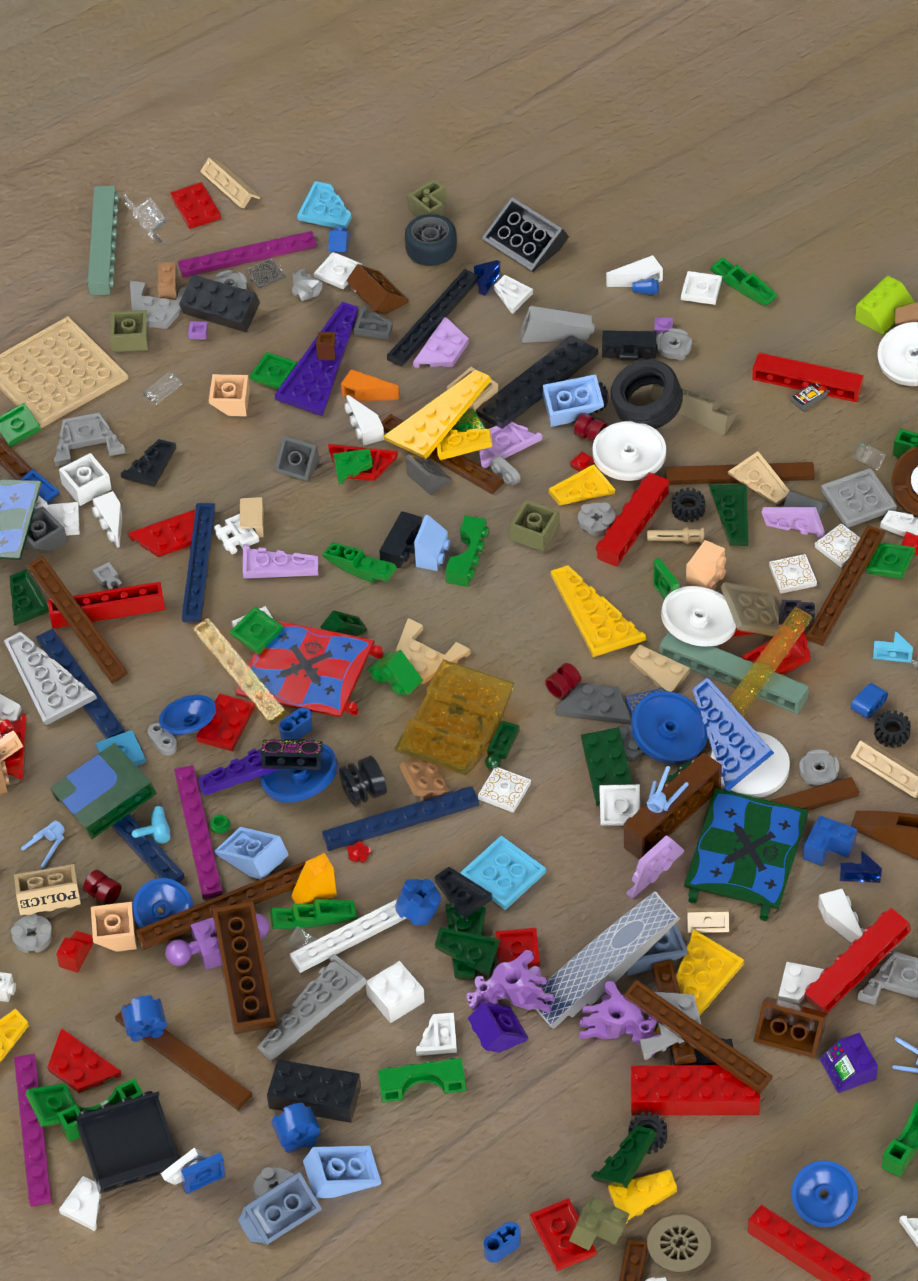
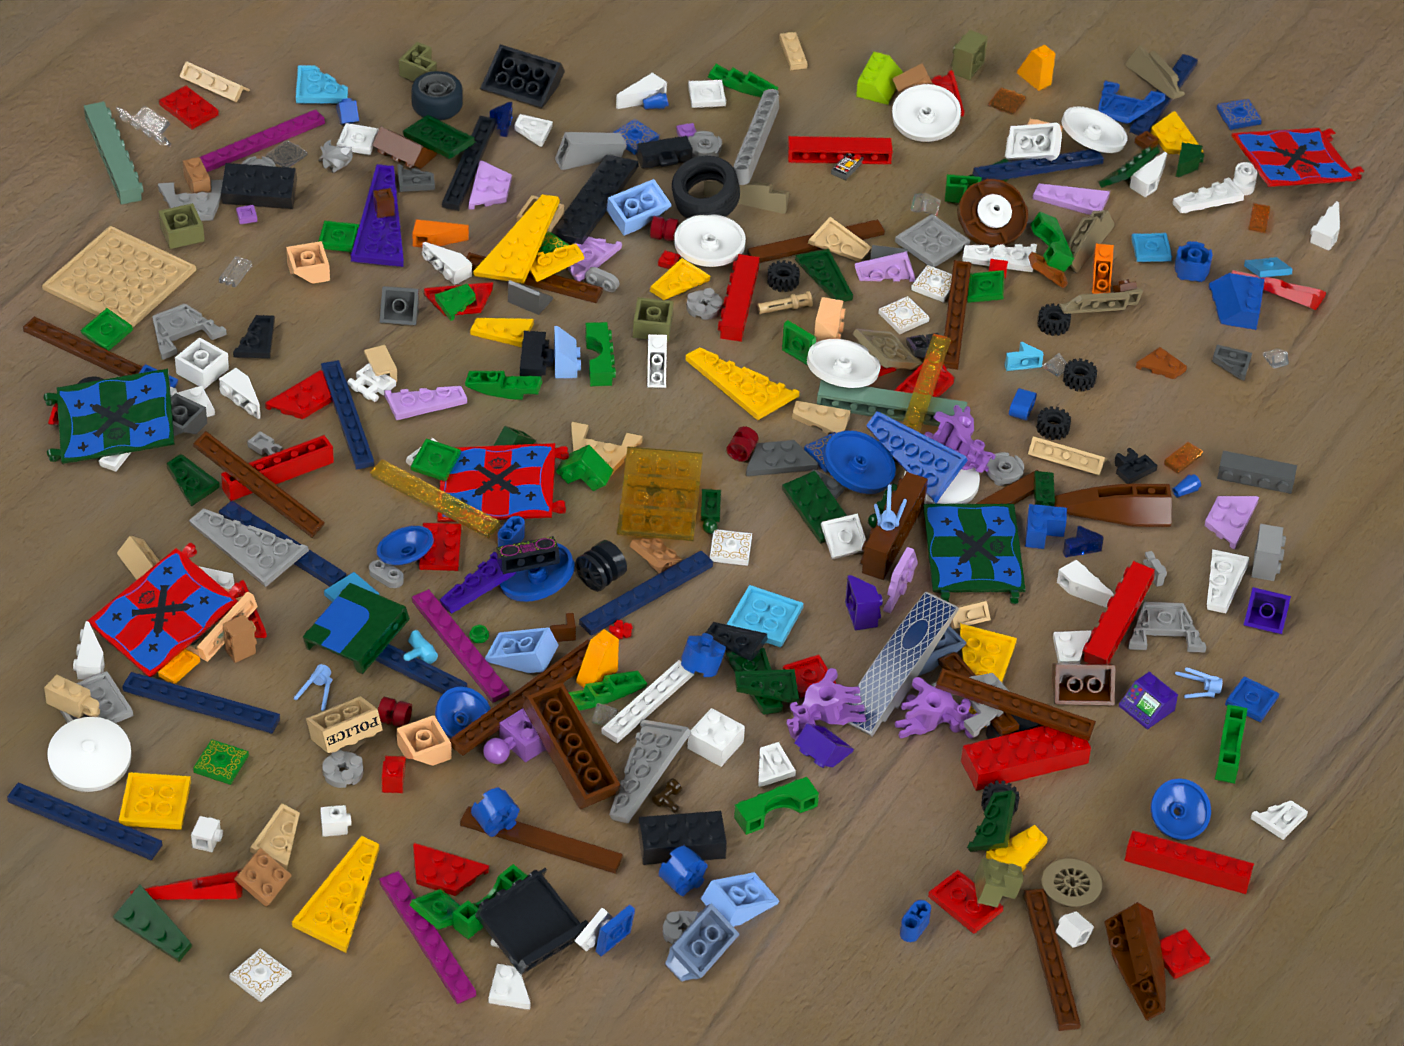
camera: 25 degrees left, 5 degrees down
(302, 840) = (565, 631): none -> reddish brown panel
(316, 1043) = (672, 787): none -> dark brown piece
(386, 503) = (502, 329): none -> yellow wing
(414, 284) = (438, 137): none -> dark green plate
(519, 571) = (657, 361): none -> white slope
(602, 885) = (862, 603): none -> dark purple slope
(610, 318) = (635, 133): none -> blue plate
(725, 346) = (756, 136): none -> light grey beam
(774, 724) = (956, 434): none -> medium lavender animal
(811, 257) = (793, 51): none -> tan plate
(847, 801) = (1044, 488): none -> dark green plate

